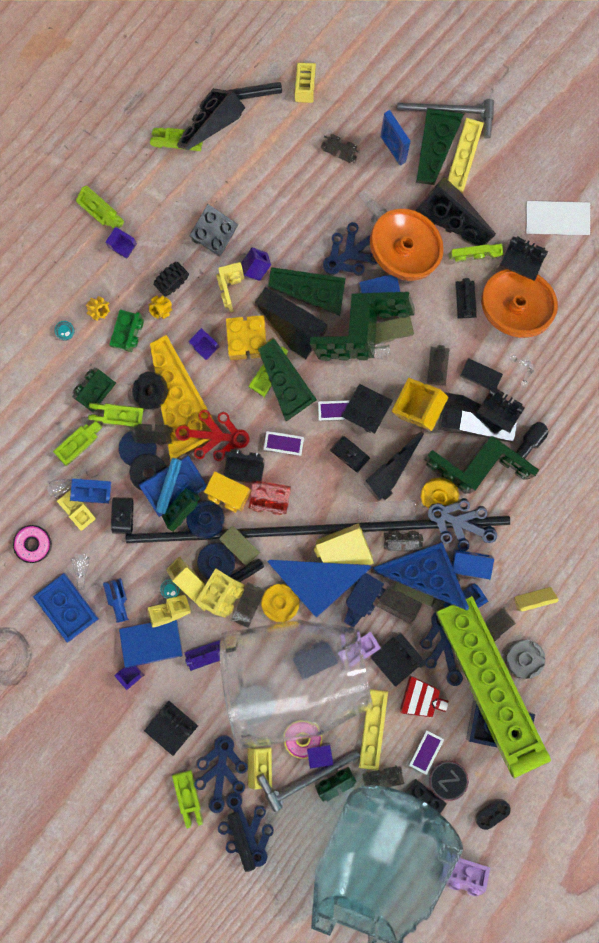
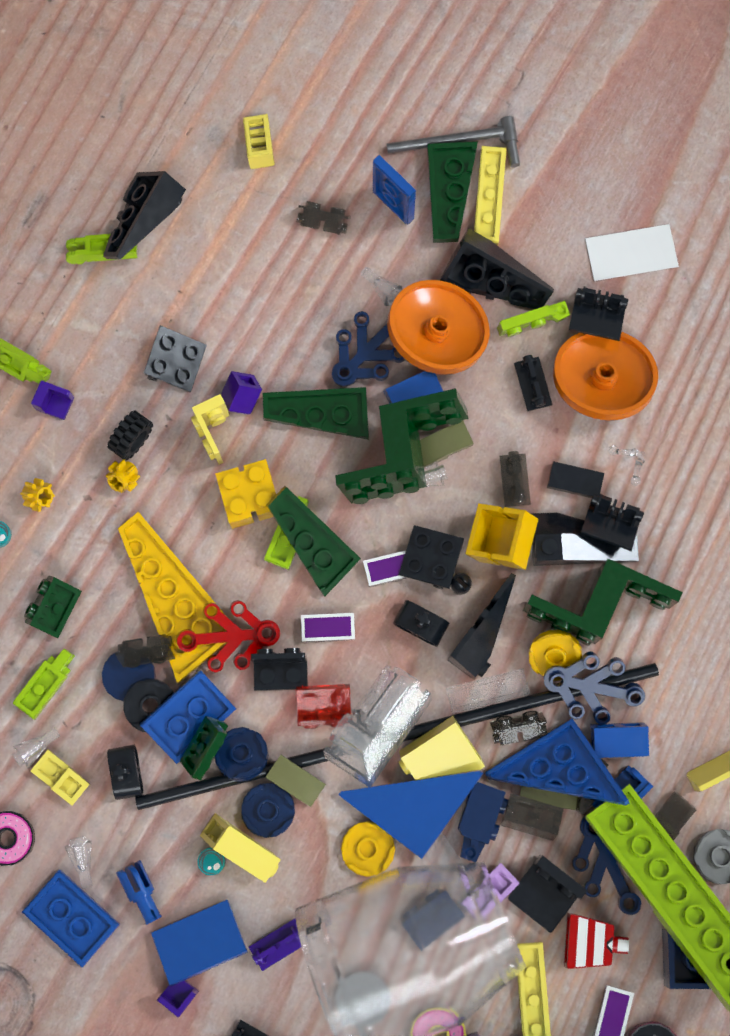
camera: 15 degrees left, 5 degrees down
(90, 491) = (74, 747): blue hinge -> none
(117, 414) = (92, 633): lime hinge -> none
(126, 330) = (82, 516): green bracket -> none
(158, 394) = (143, 592): black tile -> none
(168, 485) = (181, 717): dark azure axle -> none
(170, 611) = (217, 893): light yellow slope -> none
(203, 344) = (191, 514): dark purple panel -> none
(220, 594) = (283, 853): light yellow bracket -> none
(228, 492) = (265, 710): yellow piece -> none
(248, 570) = (302, 825): black axle -> none
(248, 605) = (324, 861): clear smoke slope -> none
(258, 90) = (198, 163): black axle -> none
(291, 322) = (304, 460): black wedge -> none
(304, 519) = (378, 725): none -> clear brick
(380, 433) = (457, 587): none -> black hinge
(533, 439) = (664, 552): black arm -> none

